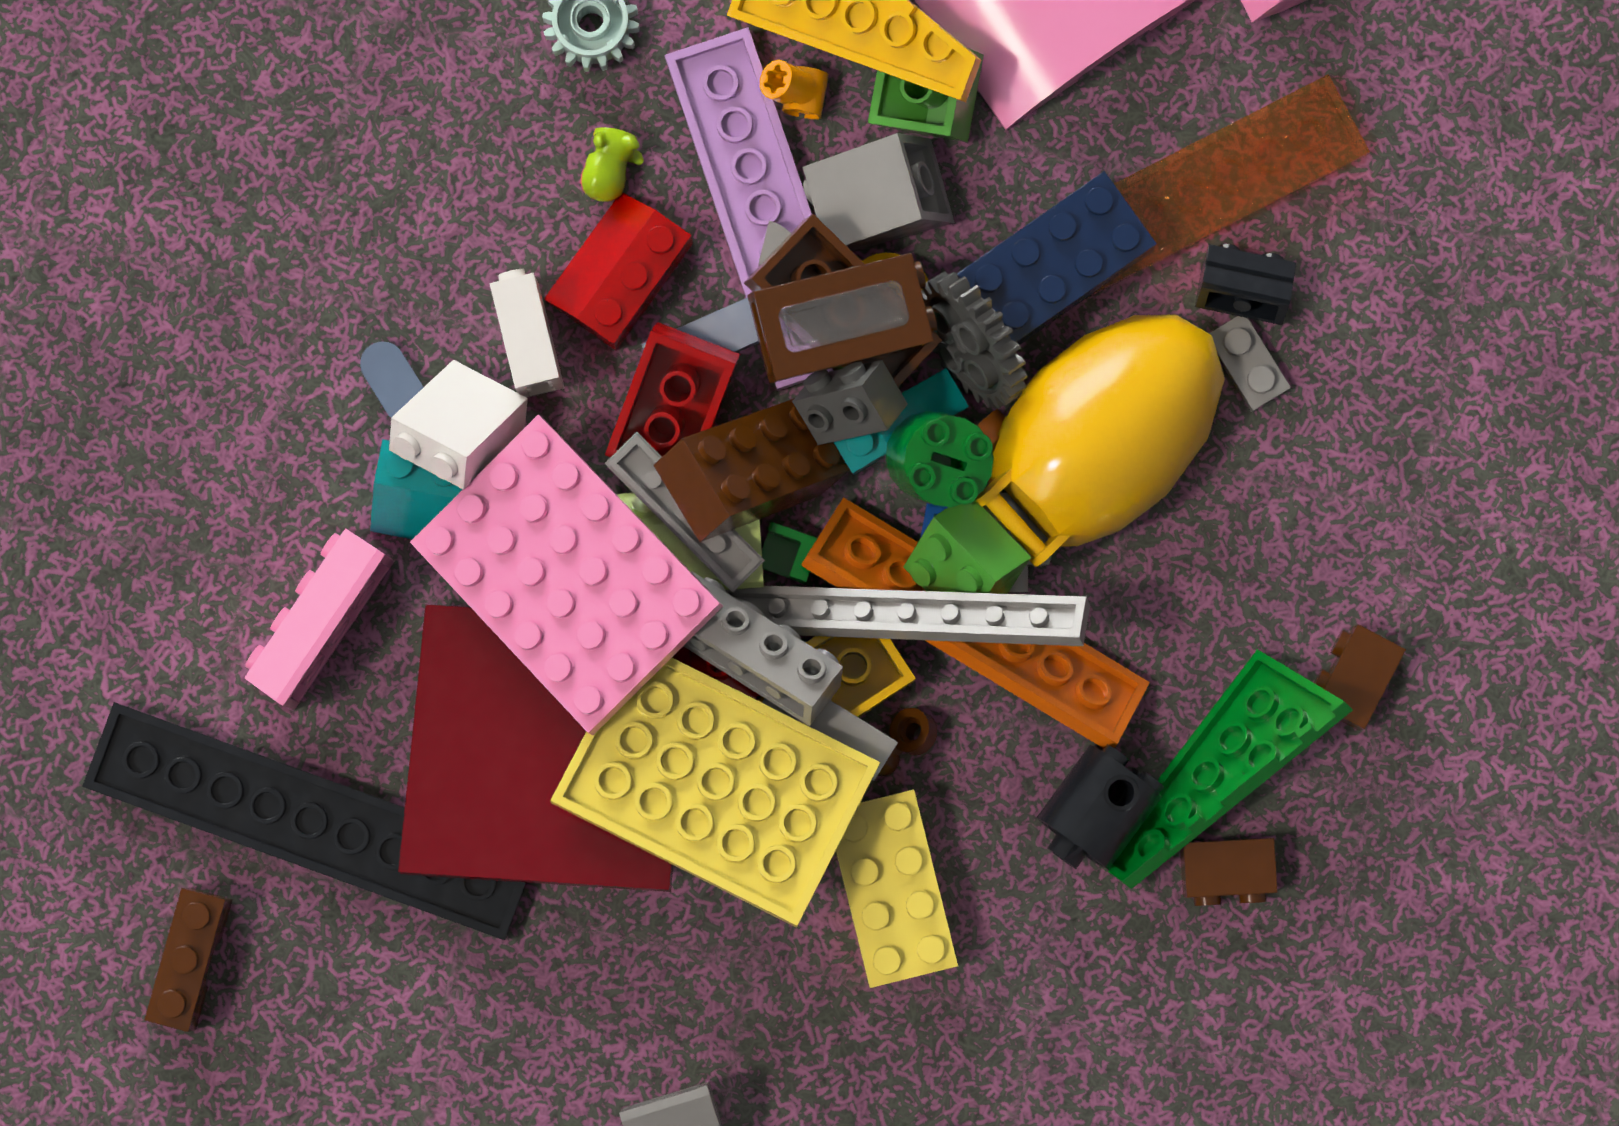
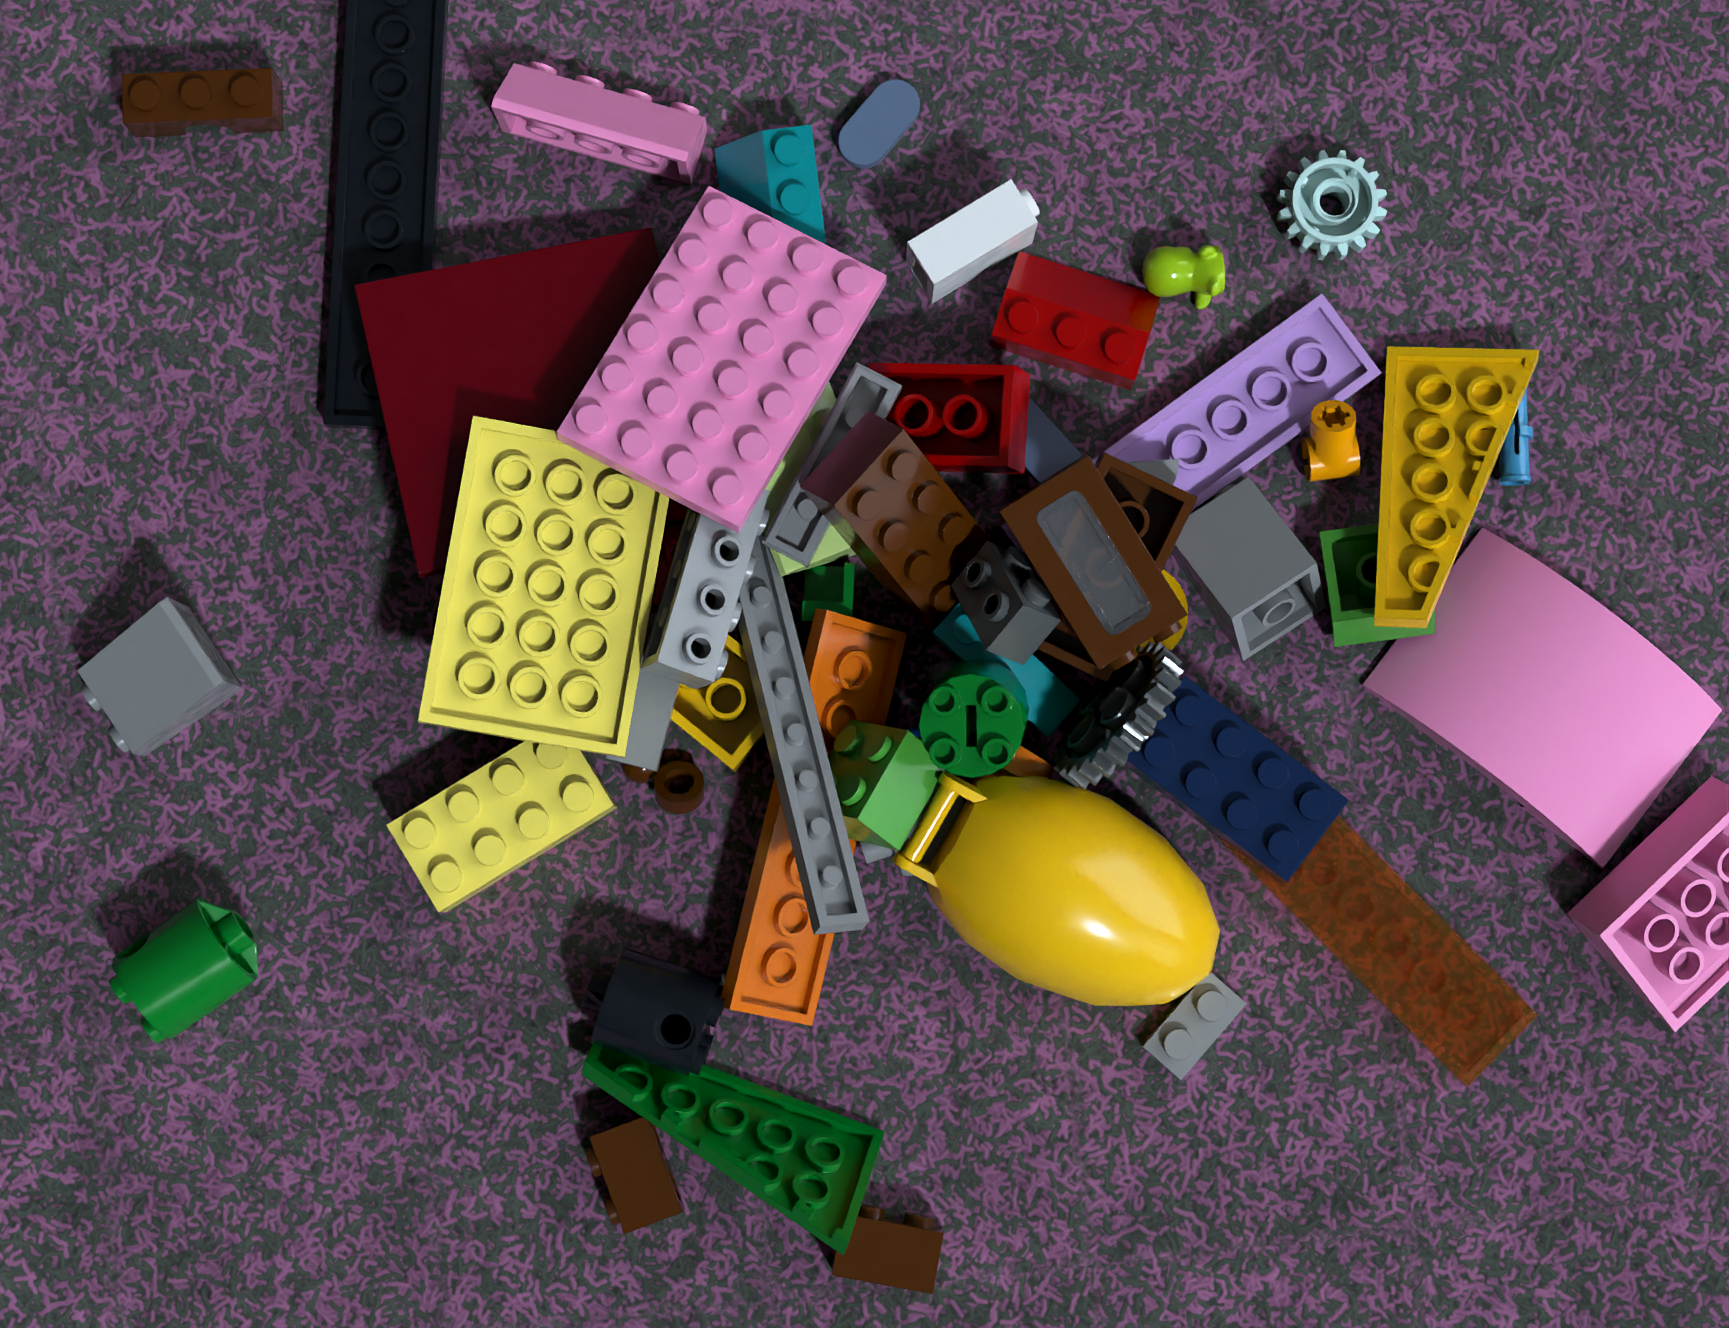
camera: 70 degrees right, 0 degrees up
(457, 424) = (851, 196): white brick -> none
(1245, 283) = (1277, 995): black brick -> none

